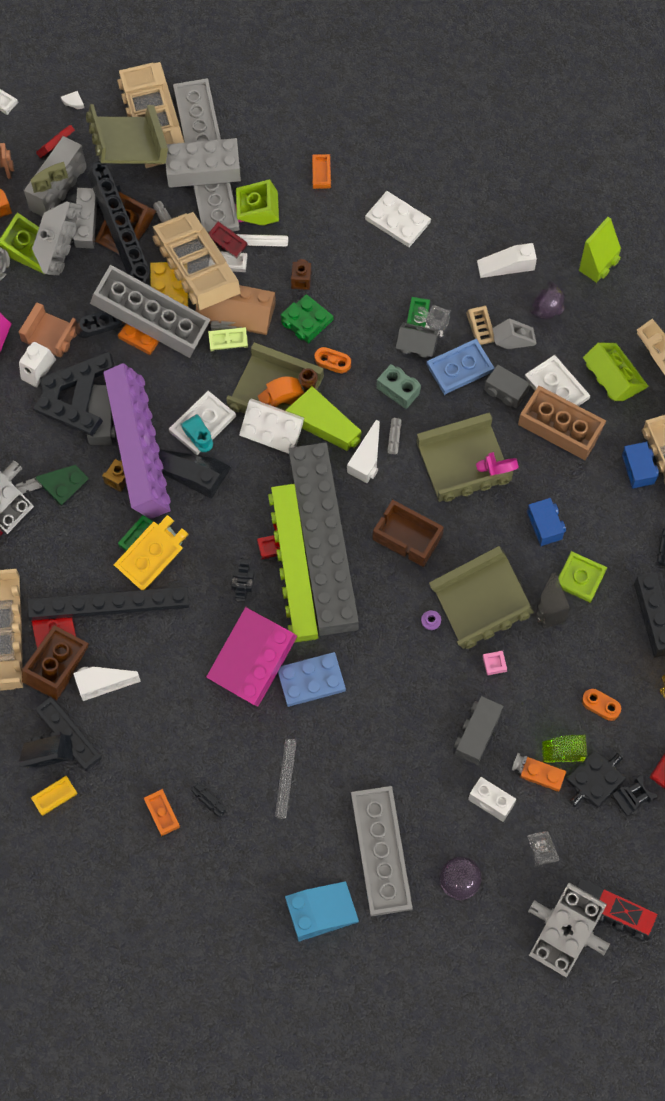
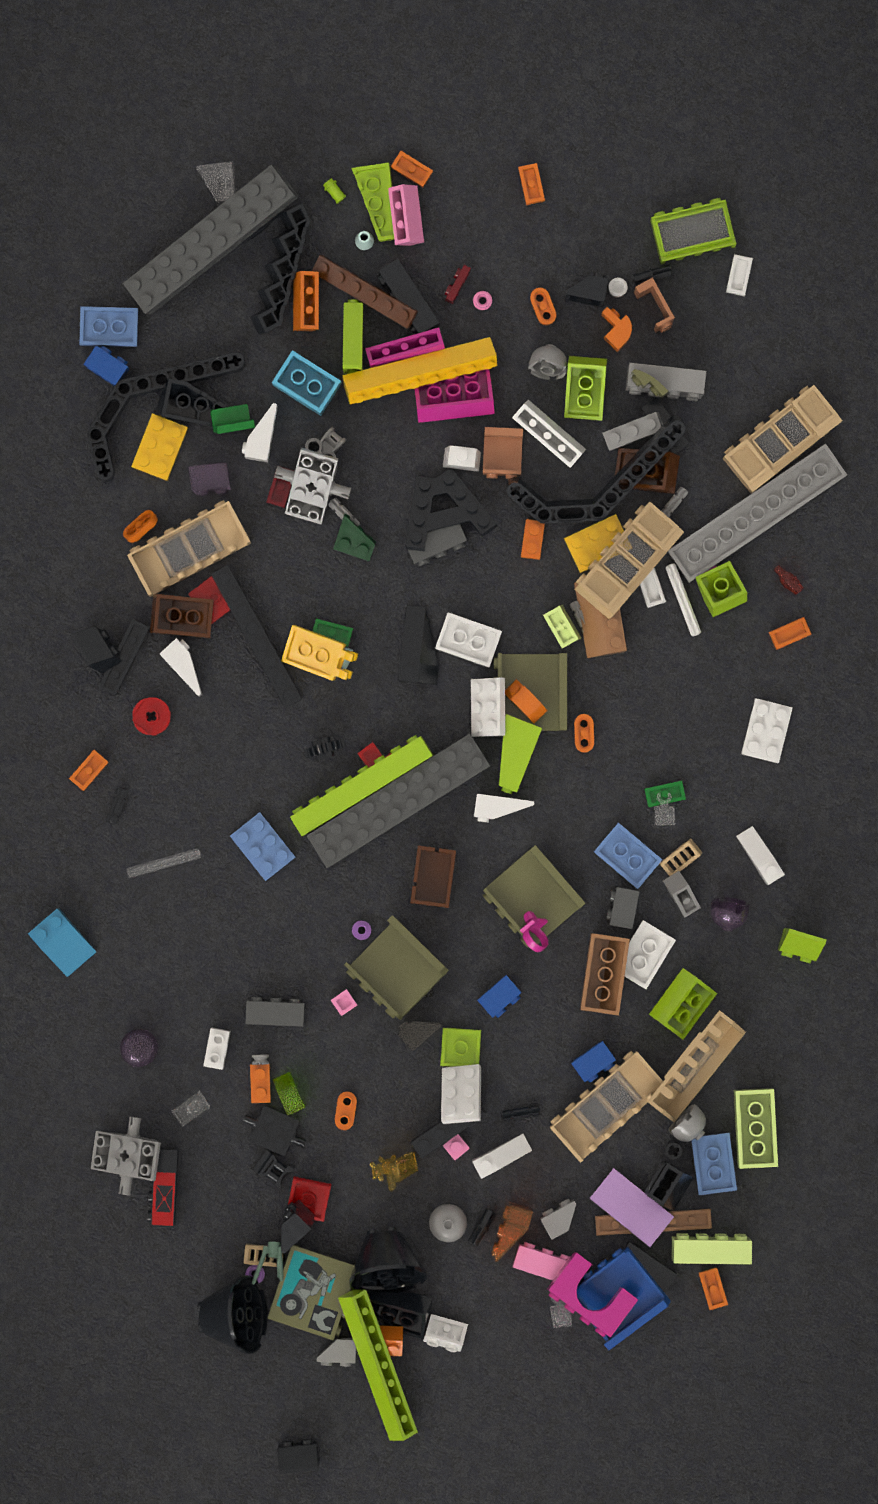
camera: 65 degrees right, 20 degrees up
(52, 284) = (549, 433): none -> white brick
(54, 141) = (707, 360): red plate -> none
(54, 795) = (66, 670): yellow tile -> none
(55, 235) = (592, 417): light grey slope -> none
(73, 100) = (767, 351): white tile -> none
(114, 479) = (376, 589): pearl gold brick -> none
(128, 138) = (729, 435): olive panel -> none
(137, 441) = (418, 591): medium lavender brick -> none
(148, 734) = (162, 714): none -> red plate
(149, 311) = (553, 543): light grey brick -> none
(197, 432) = (453, 640): teal piece -> none
(202, 163) = (740, 517): light grey brick -> none
(227, 239) = (667, 578): dark red plate -> none
(251, 656) = (257, 786): dark pink slope -> none
(275, 154) = (789, 580): none -> clear red piece
(301, 275) = (658, 669): reddish brown brick -> none
(306, 318) = (619, 689): green plate -> none
(308, 378) = (551, 717): reddish brown cone -> none
(381, 851) = (134, 971): light grey plate -> none
(394, 436) = (530, 823): light grey axle -> none
(395, 389) = (577, 805): sand green brick -> none
(417, 340) = (636, 804): dark grey brick -> none
(627, 586) = (461, 1094): none -> white plate

